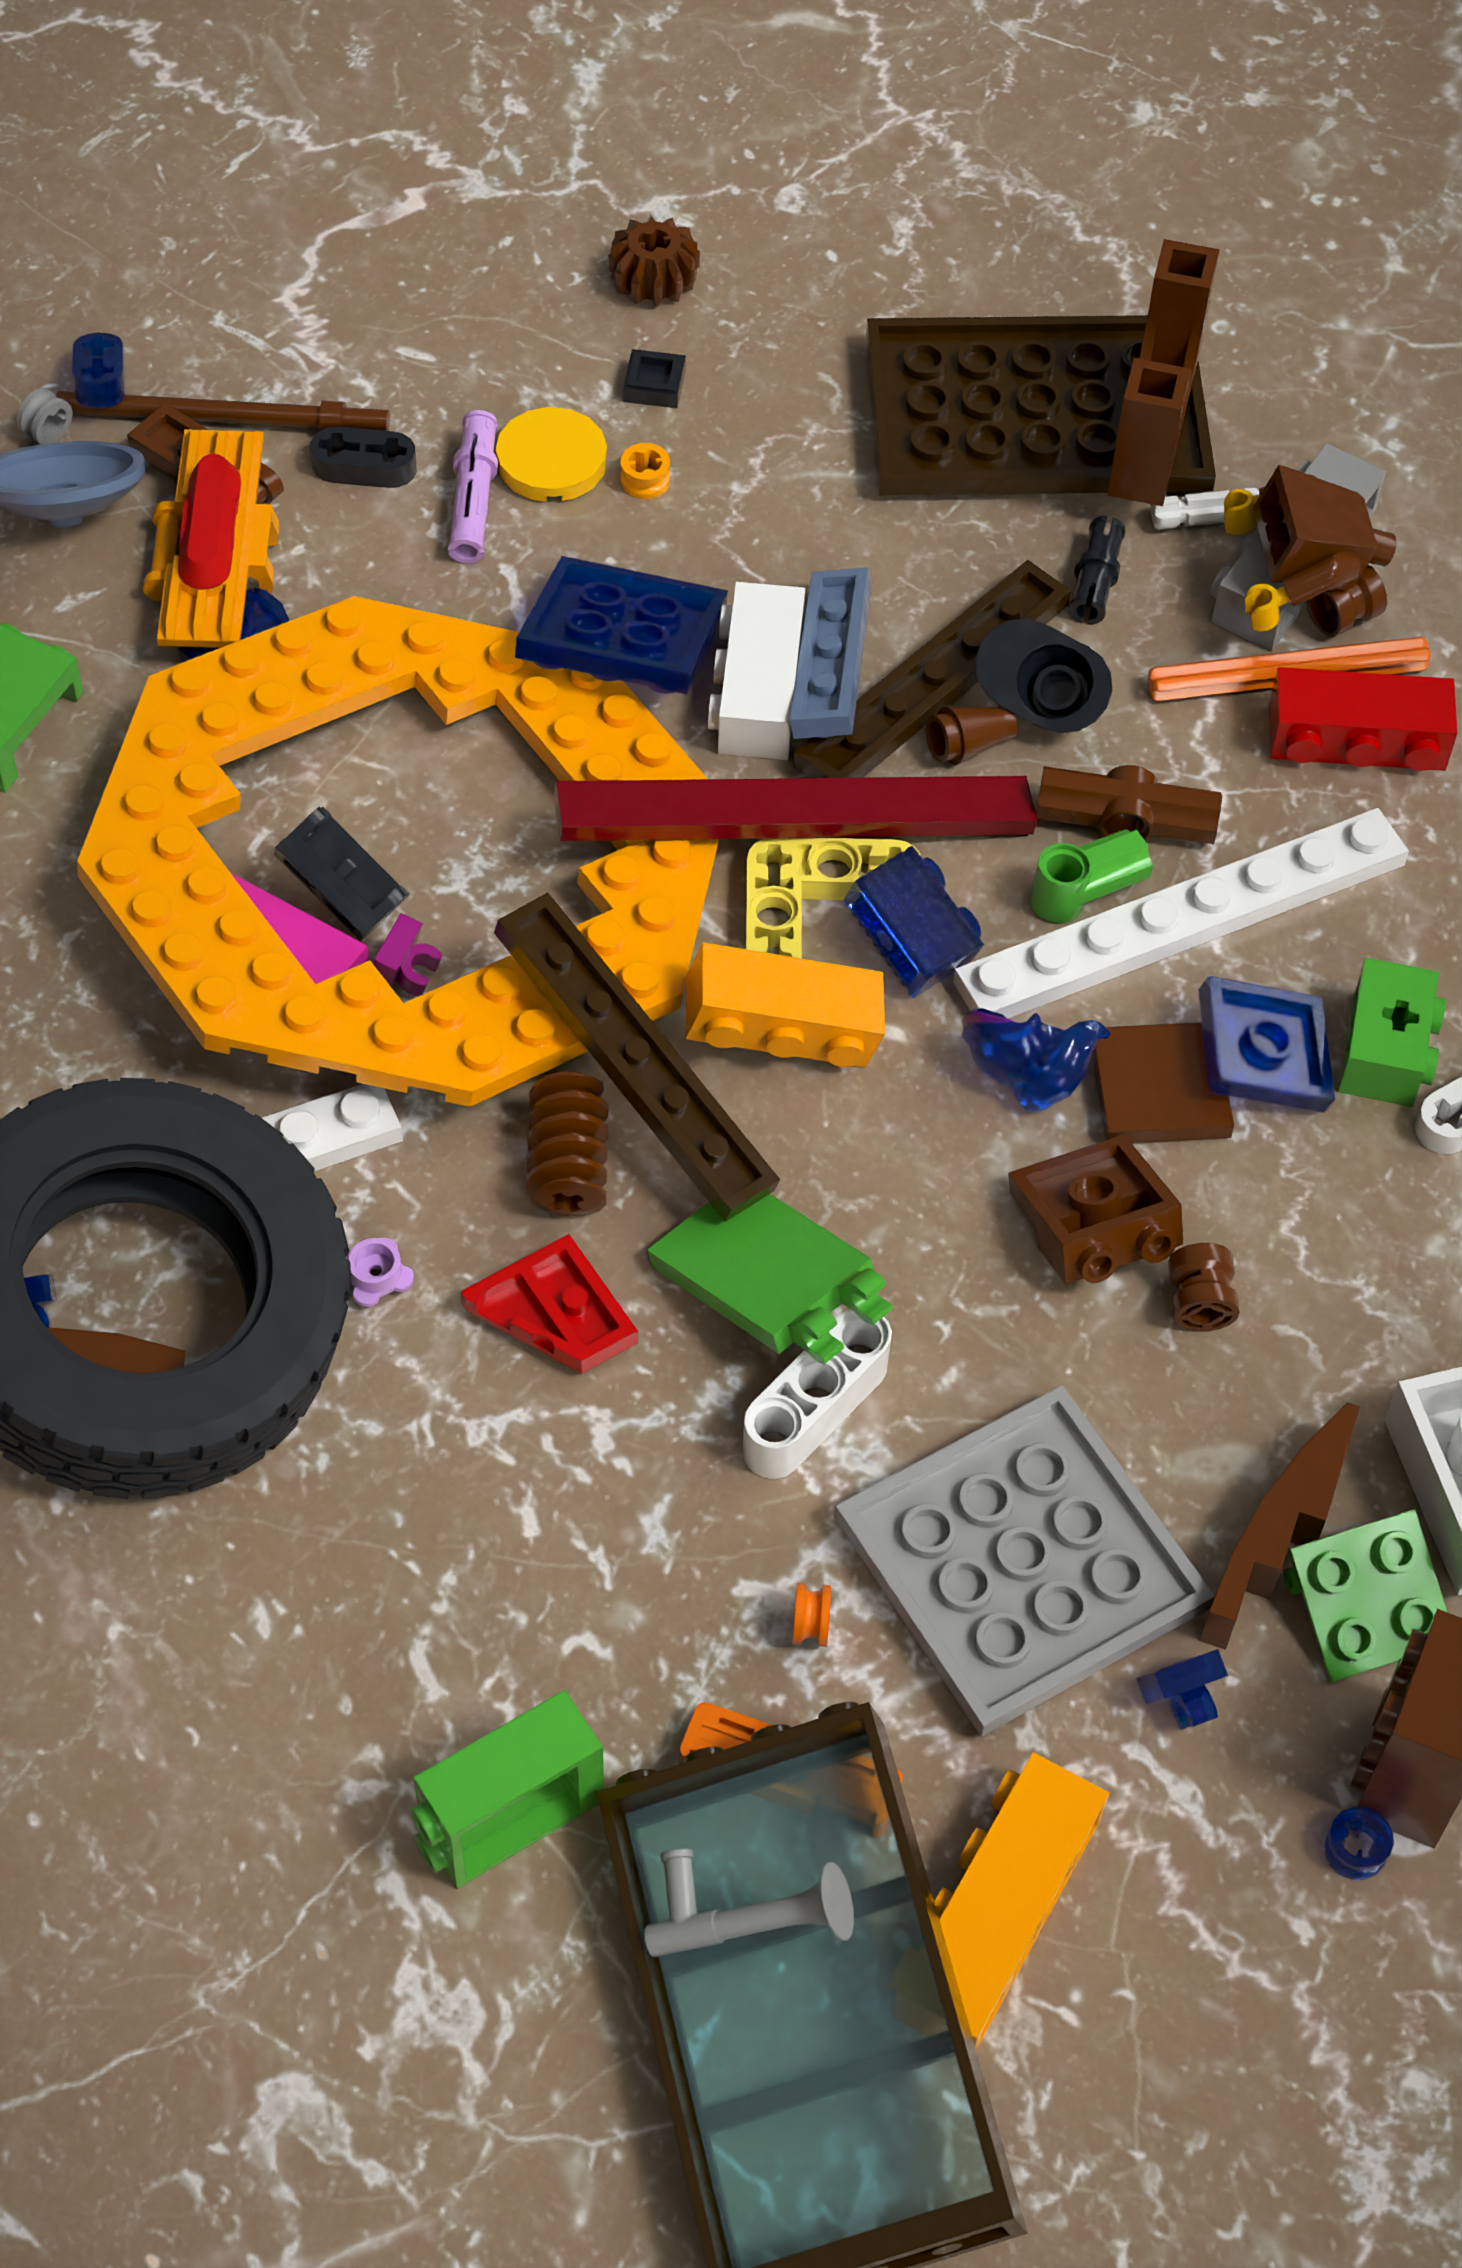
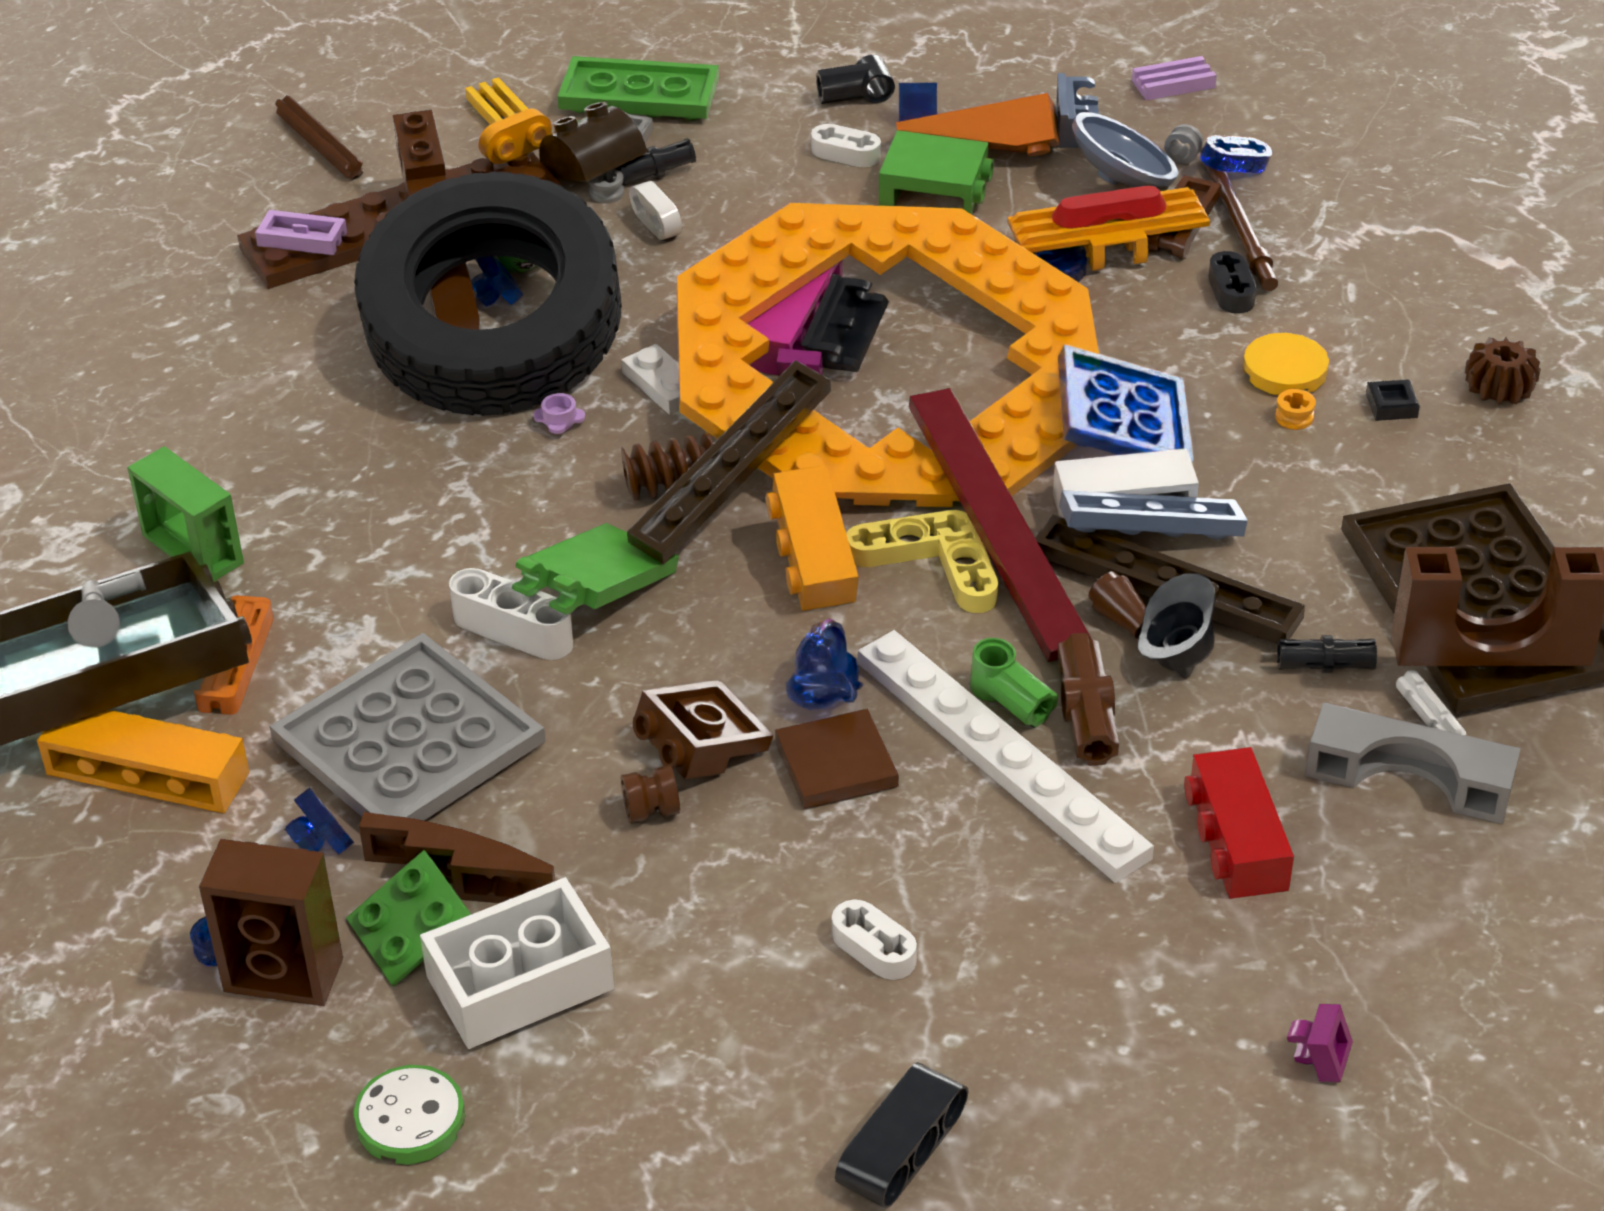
camera: 80 degrees right, 15 degrees down
(475, 468) = (1227, 331): lavender pin -> none
(555, 1306) = (551, 491): red wing -> none
(811, 1614) = (343, 651): orange bush -> none
(914, 920) = (918, 591): clear blue brick -> none
(1259, 671) = (1285, 783): orange axle -> none
(1266, 1044) = (880, 798): clear blue plate -> none
(1311, 539) = (1377, 730): reddish brown torso -> none
(1338, 609) = (1370, 799): reddish brown wheel -> none
(1391, 1032) = (923, 872): bright green brick -> none

